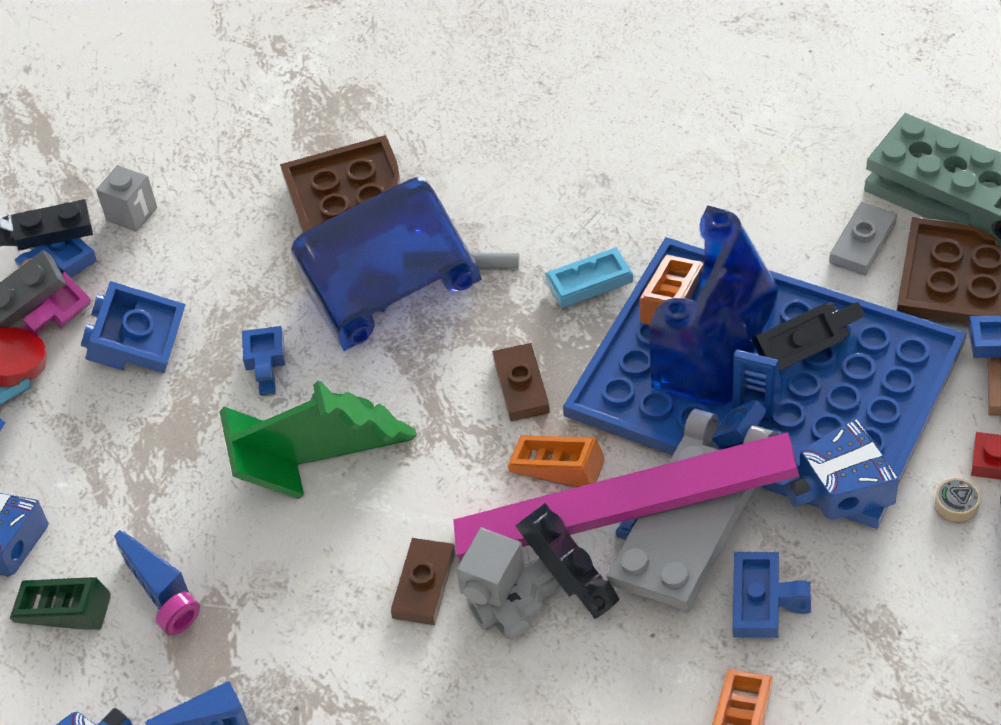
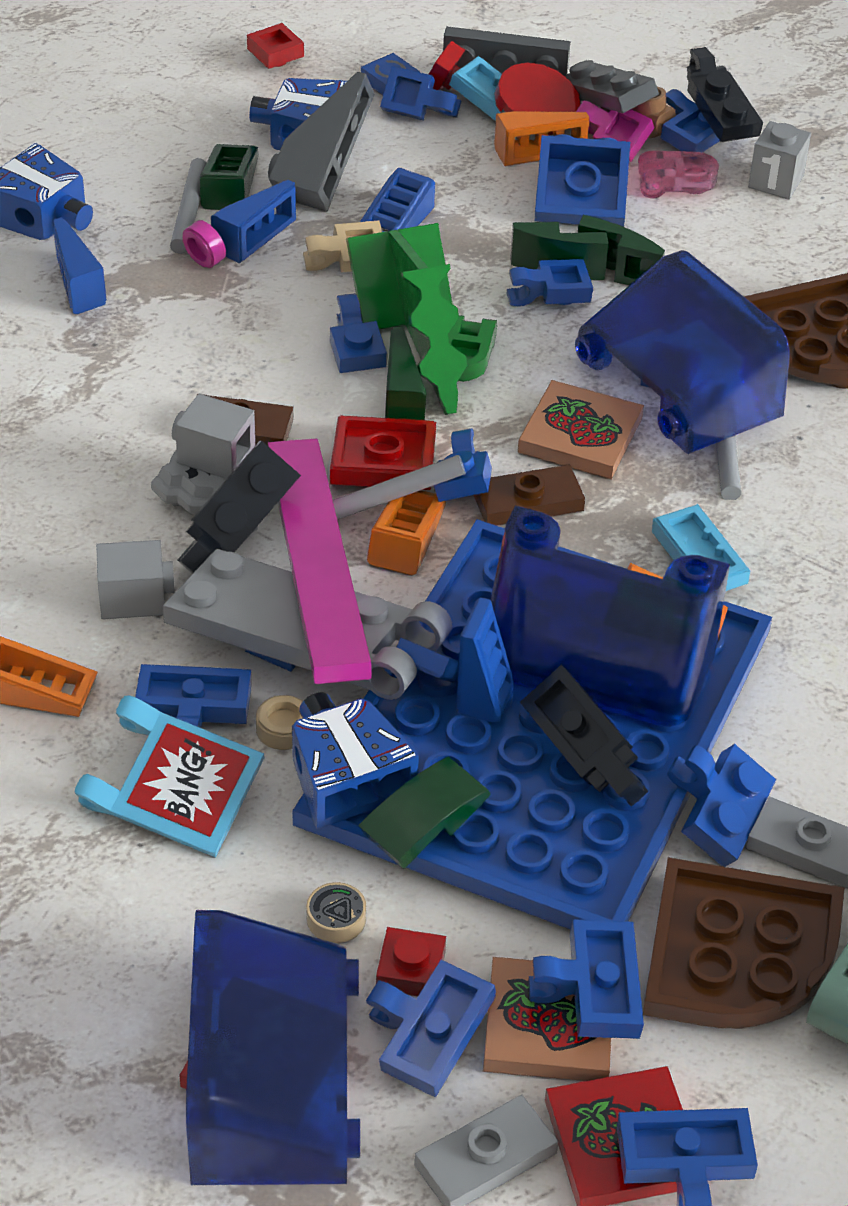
camera: 80 degrees right, 5 degrees down
(56, 366) = (523, 124): none -> orange slope
(74, 512) = (322, 144): none -> dark grey slope
(102, 636) = (188, 205): none -> light grey bar
(122, 257) = (676, 172): none -> clear pink plate
(127, 451) = (402, 201): none -> blue slope
(200, 495) = (326, 250): none -> tan plate
(224, 352) = (543, 241): none -> dark green slope
(235, 303) = (628, 251): none -> dark green slope
(323, 497) = (355, 343): none -> blue plate
(387, 457) = (404, 384): none -> dark green slope
(443, 347) = (581, 429): none -> nougat tile
(471, 473) = (380, 449): none -> red tile
(506, 417) = (476, 466): none -> blue plate
(530, 448) = (399, 487): none -> light grey bar
(631, 643) = (132, 579): none -> light grey brick
(773, 535) = (276, 719): none -> tan tile
(837, 273) = (727, 799): none -> blue plate
(854, 595) = (182, 782): none -> flag
(888, 428) = (422, 808): none -> dark green slope

